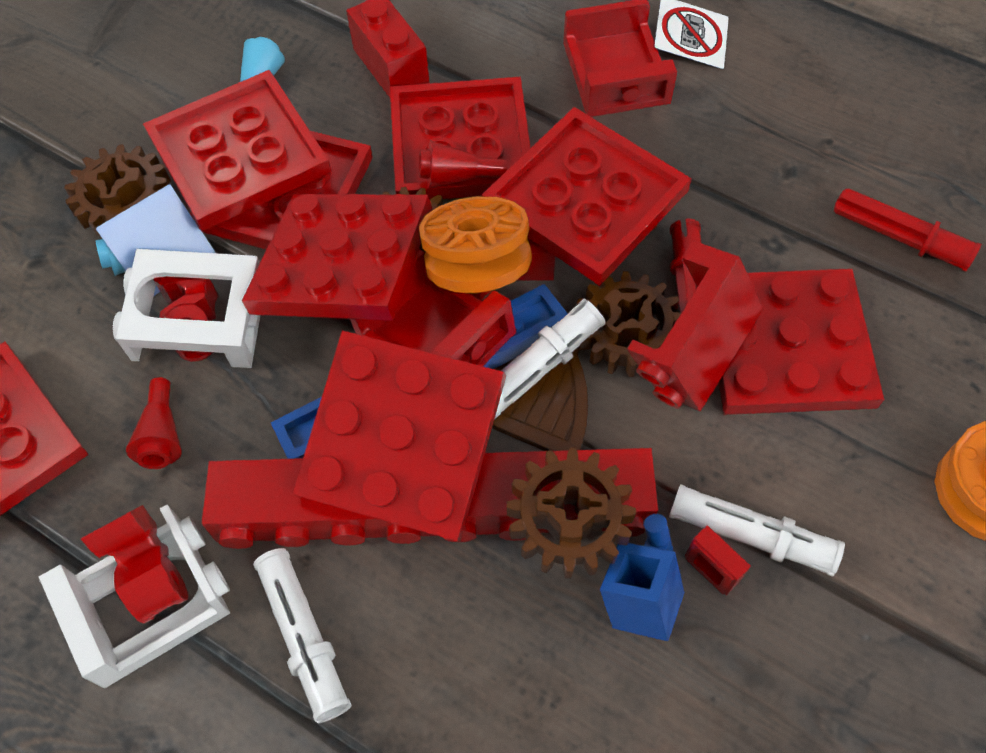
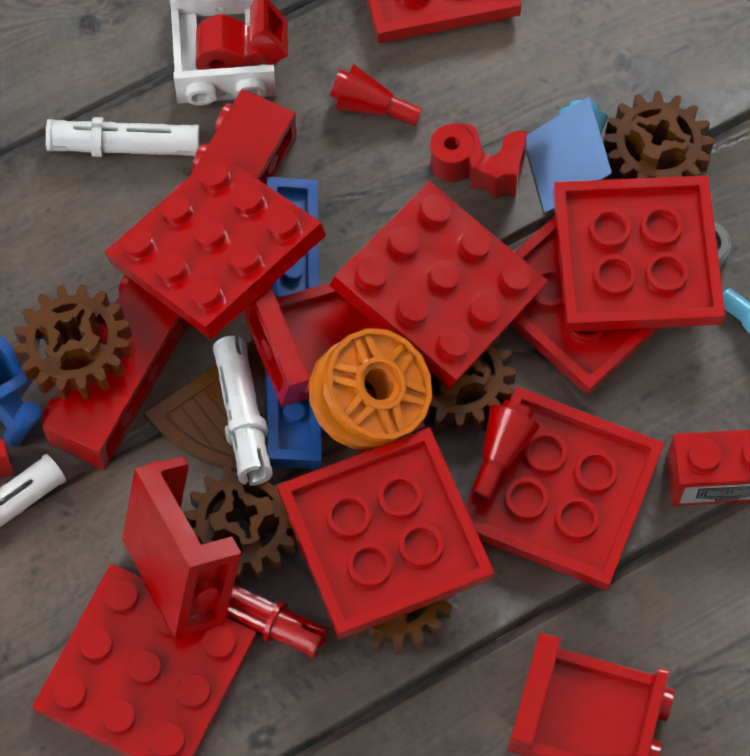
camera: 115 degrees right, 5 degrees up
(233, 337) = (520, 129): white panel -> none

